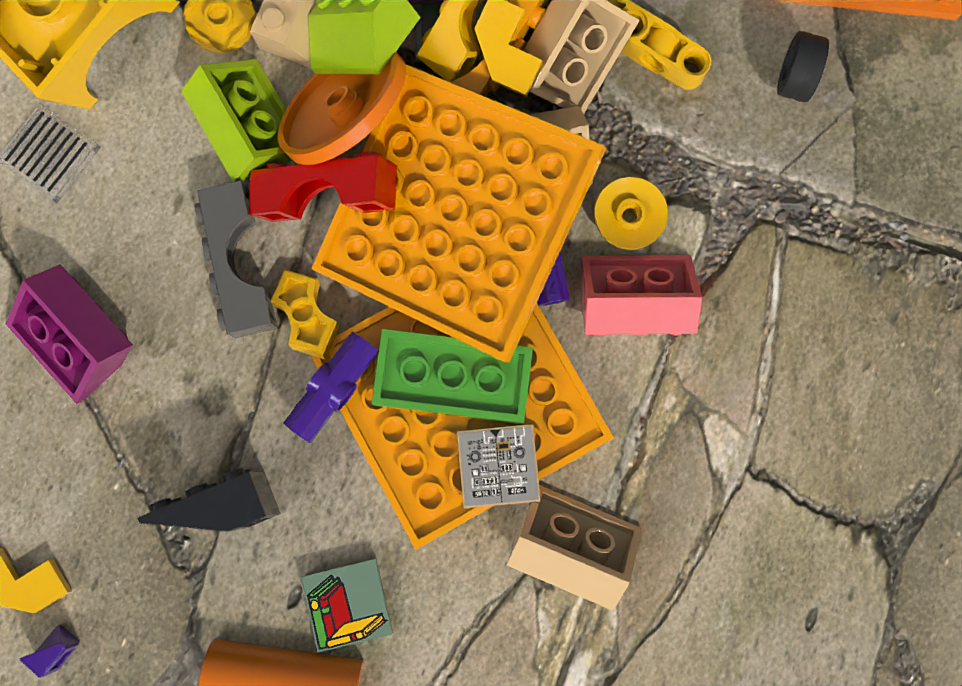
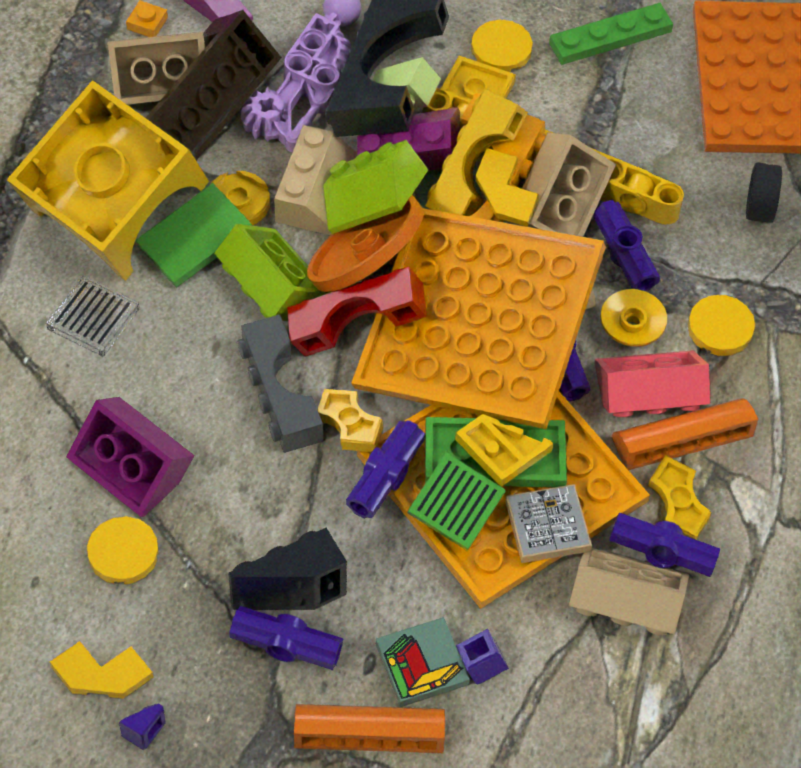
camera: 10 degrees left, 25 degrees down
(52, 443) = (122, 550): none -> yellow tile
(161, 61) = (191, 235): none -> bright green tile
(207, 567) = (286, 637): none -> dark purple piece
(401, 437) = (456, 501): none -> bright green tile
(409, 607) = (482, 657): none -> dark purple slope
(456, 382) = (501, 448): none -> yellow wing
(620, 499) = (664, 544): none -> dark purple piece
(644, 139) = (626, 246): none -> dark purple piece
(648, 455) = (675, 486): none -> yellow tile
(665, 358) = (685, 433): none -> orange brick
(726, 227) = (721, 325): none -> yellow tile

